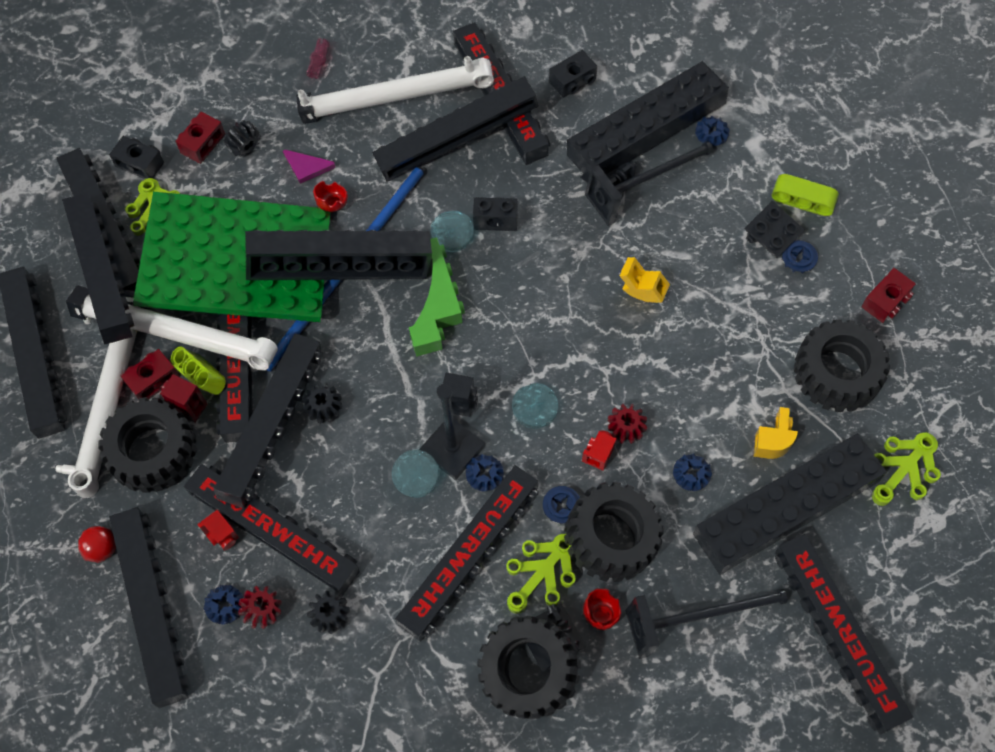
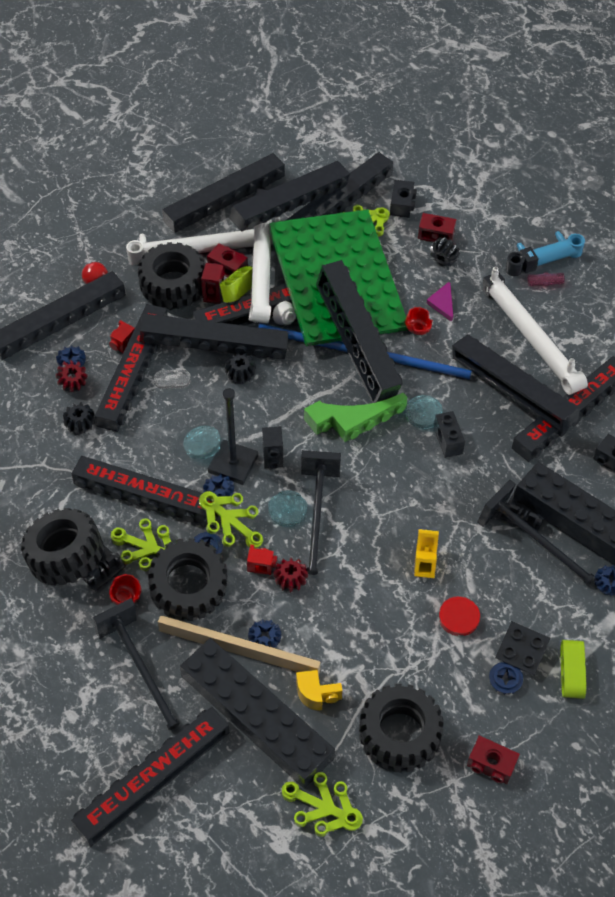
camera: 70 degrees right, 10 degrees down
(262, 328) = (284, 313): none -> white cone
(285, 42) = (528, 258): none -> dark azure piece
(304, 487) = (172, 379): none -> clear tile
(501, 351) = (318, 465): none -> black tile
(541, 468) = (228, 517): none -> lime plant
(702, 503) = (238, 645): none -> tan tile
(718, 276) = (459, 616): none -> red tile

